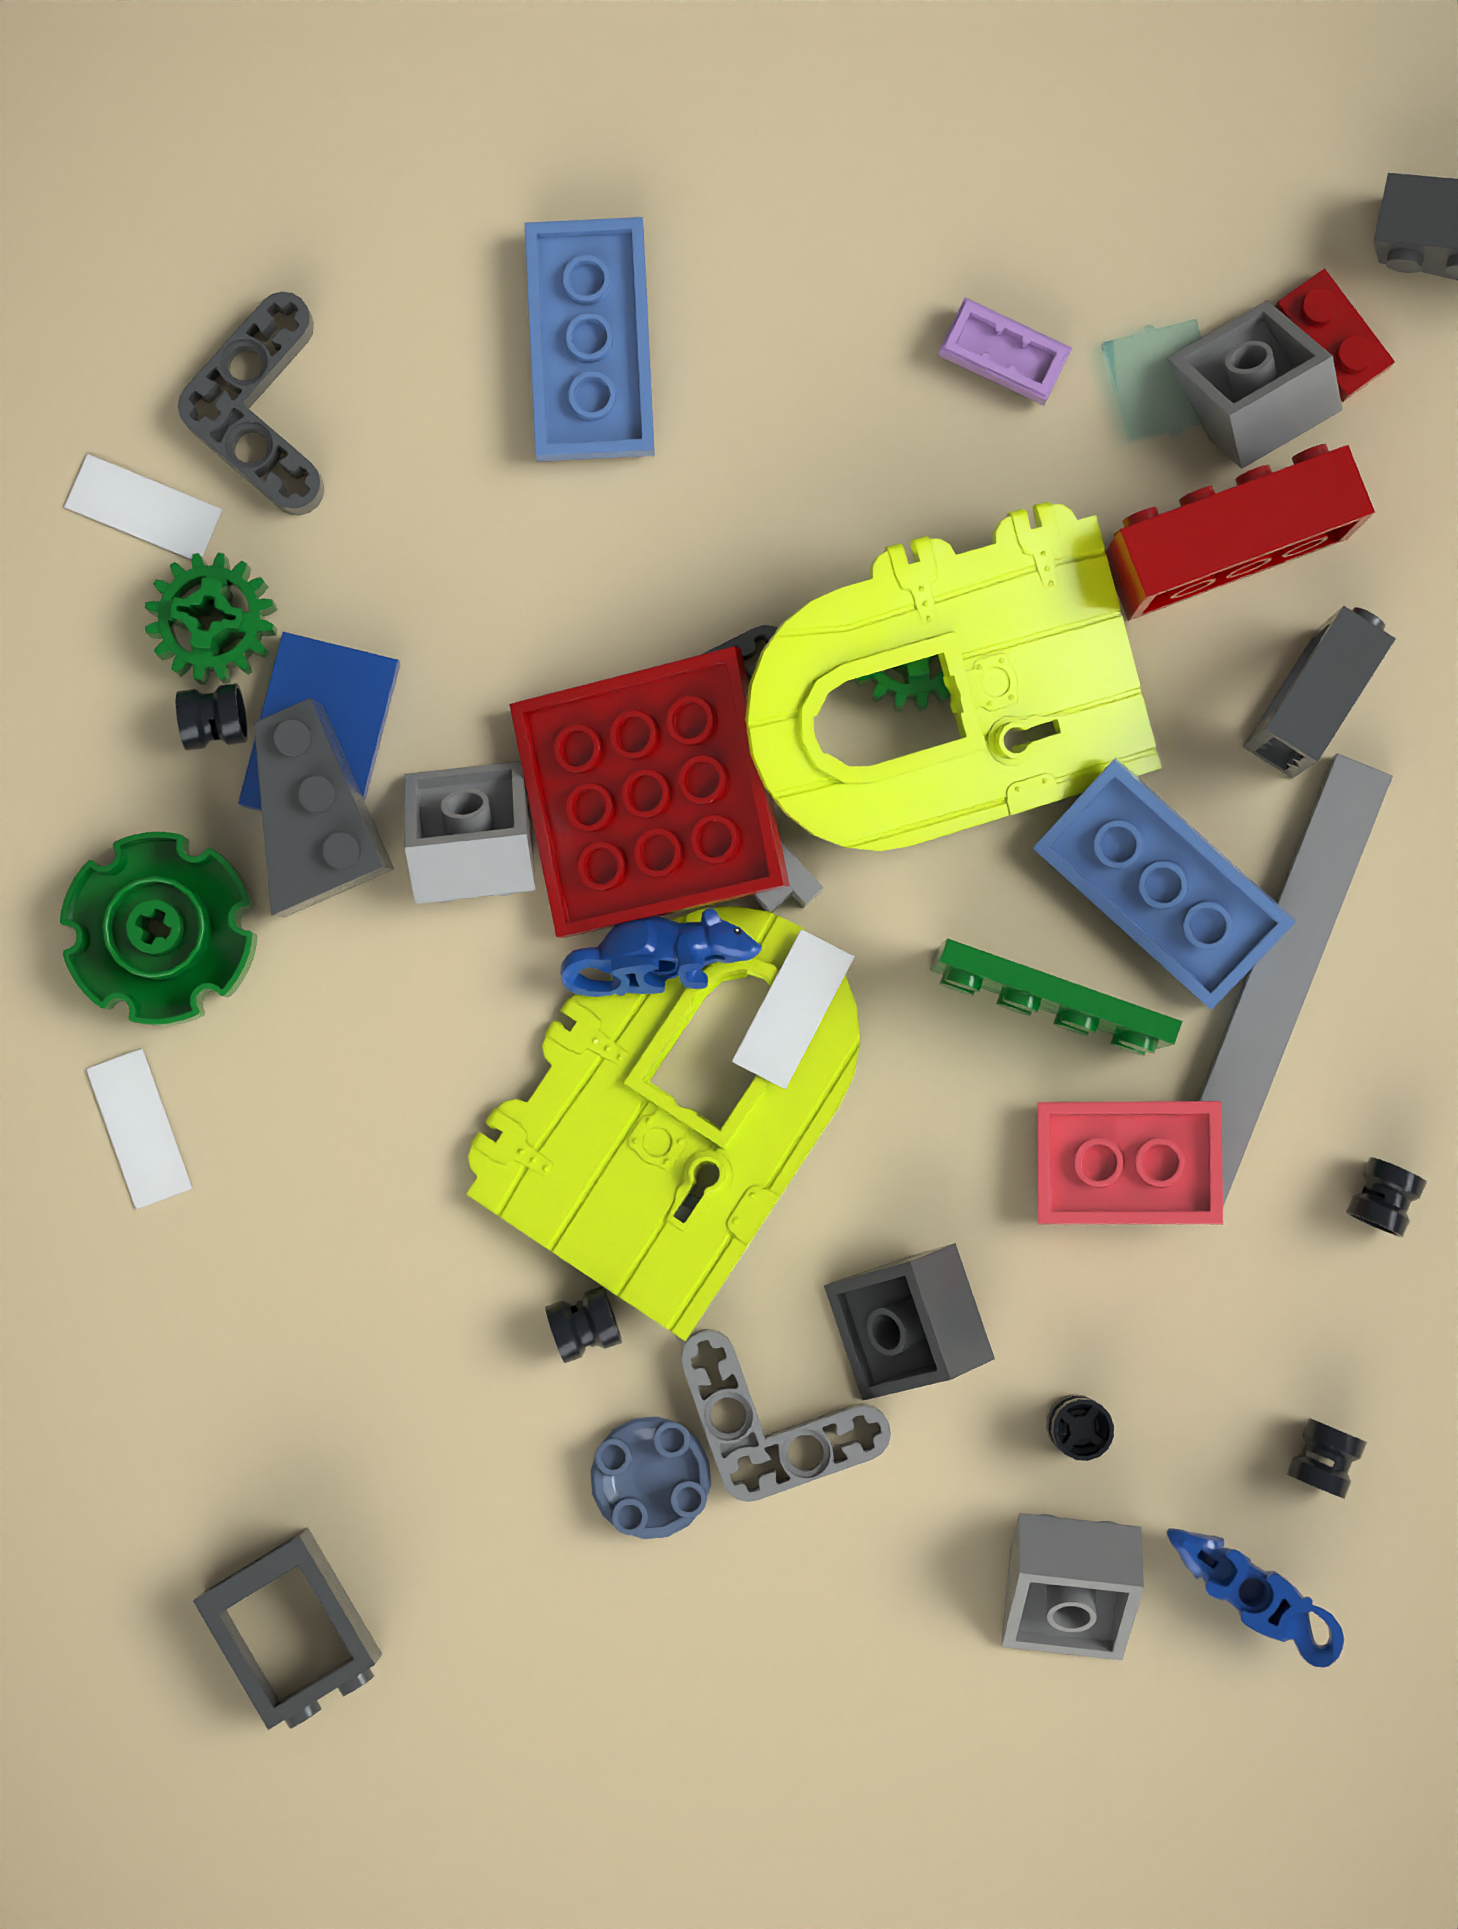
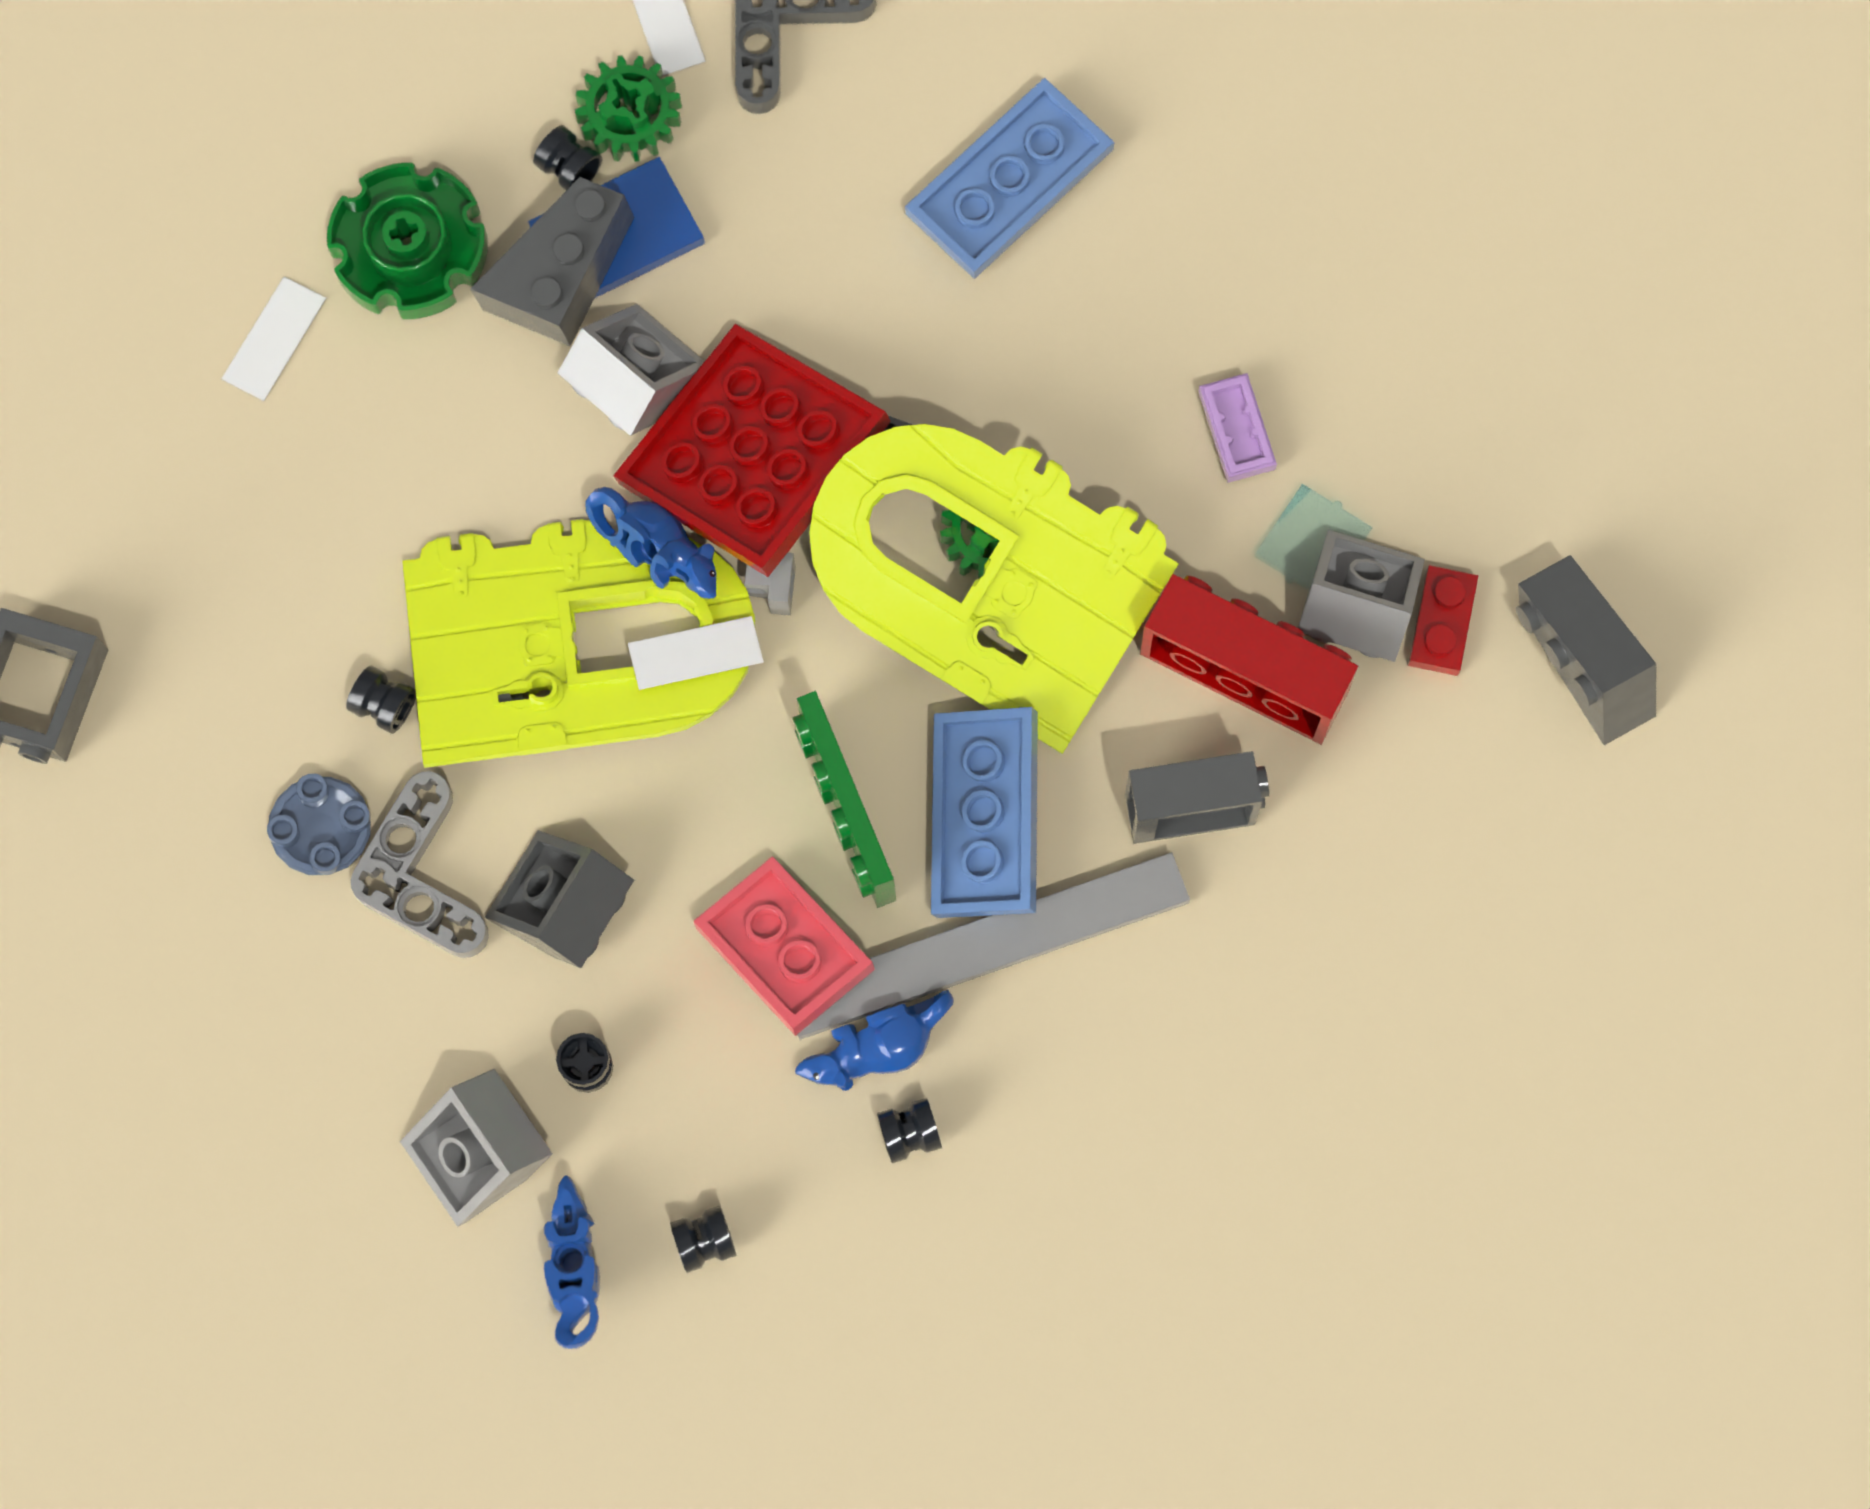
camera: 55 degrees right, 10 degrees down
(1294, 1150) = (888, 1045): none -> blue animal

